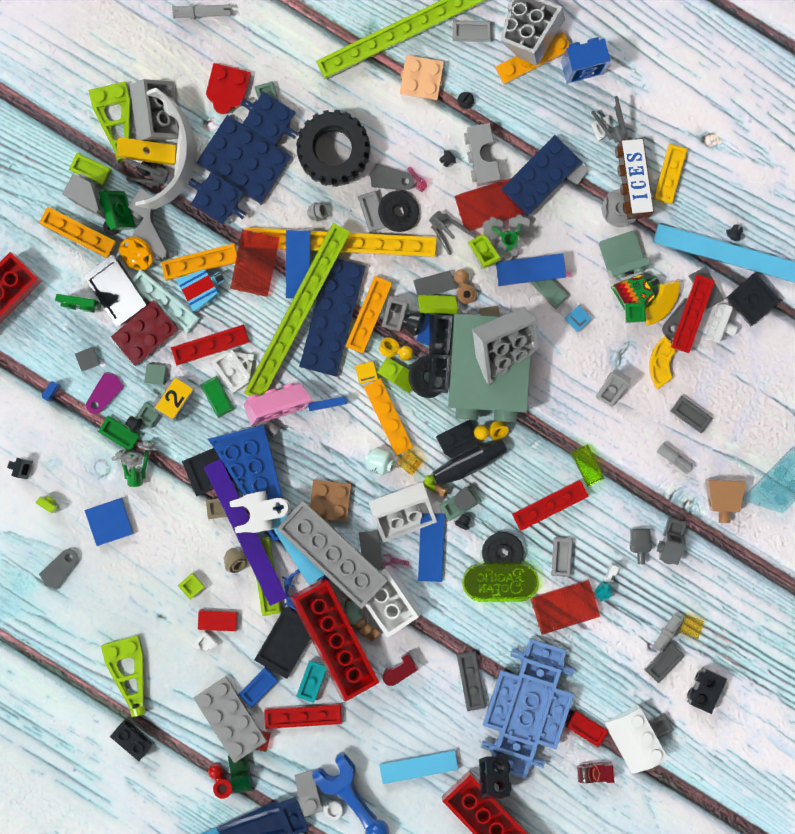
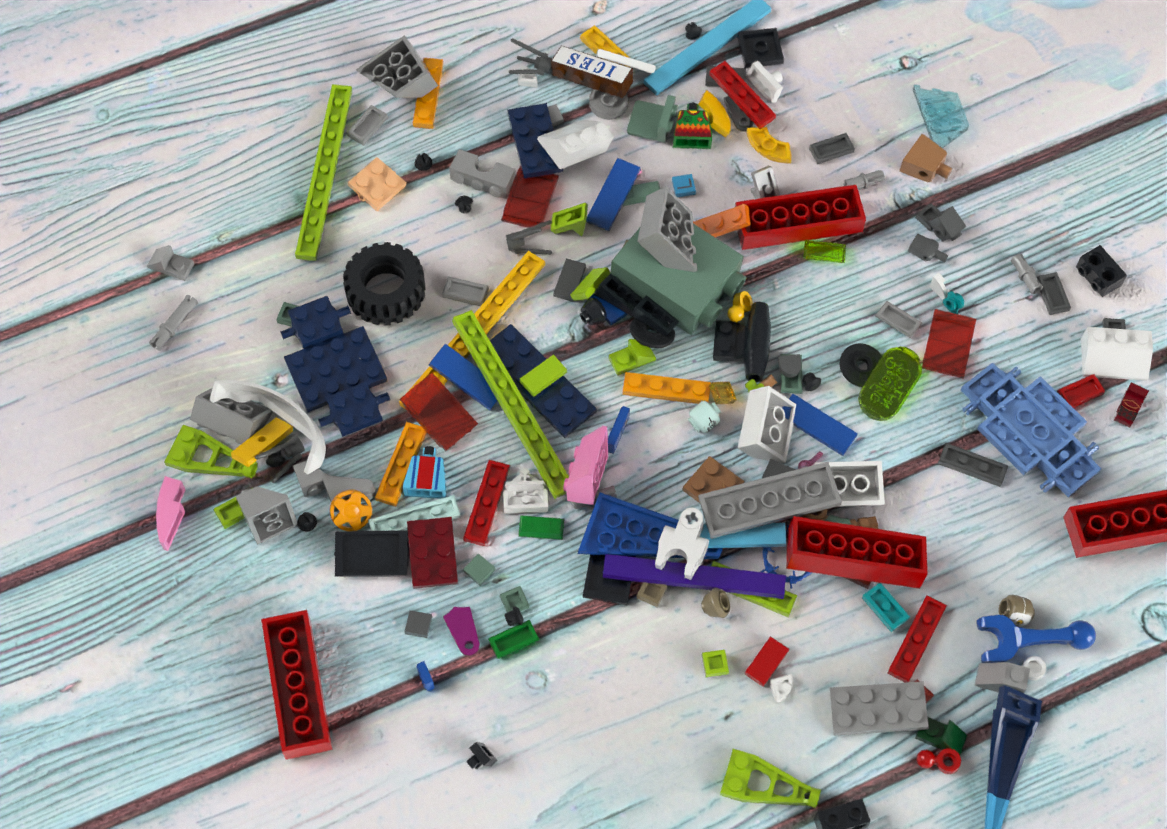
camera: 60 degrees left, 25 degrees down
(48, 503) = (537, 751): lime plate -> none
(52, 122) = (169, 510): none -> bright pink slope
(58, 569) = (612, 787): dark grey piece -> none
(72, 302) = (357, 589): green plate -> none
(77, 232) = (289, 554): light orange plate -> none
(109, 521) = (596, 705): blue tile -> none
(116, 210) = (303, 502): green plate -> none
(135, 476) = (567, 647): plant -> none
(173, 399) = (517, 563): brick -> none
(227, 87) = (258, 343): red plate -> none
(258, 687) = (860, 663): blue tile -> none
(284, 644) = (830, 610): black piece -> none
(316, 211) = (430, 335): light grey plate -> none
(333, 321) = (543, 375): none -> lime tile
(366, 372) = (611, 382): yellow tile -> none
(367, 776) = (1018, 609): none -> dark tan head
(368, 314) = (557, 344): light orange plate -> none
(387, 214) = (491, 262): black wheel -> none
(390, 178) = (446, 260): dark grey piece -> none
(390, 347) = (603, 347): yellow plate -> none
(394, 313) = (571, 322): light grey slope -> none
(396, 674) = (925, 517): dark red leg -> none
(418, 766) = (1034, 559): medium azure tile -> none
(420, 184) = (469, 237): clear pink hand -> none
(461, 277) = (580, 253): medium nougat plate -> none
(489, 777) = (1085, 485): black brick -> none
(509, 238) = (567, 183): light grey plant -> none
(550, 505) = (842, 301): red plate -> none
(553, 372) = (725, 221): none -> orange plate
(557, 209) = (576, 142): none -> white slope
(585, 60) = (462, 45): blue brick -> none
(602, 429) = (802, 217): none -> red brick
(635, 312) = (710, 131): green tile -> none
(662, 199) = (625, 61): none -> white tile
(691, 626) = (1032, 253): clear yellow tile -> none

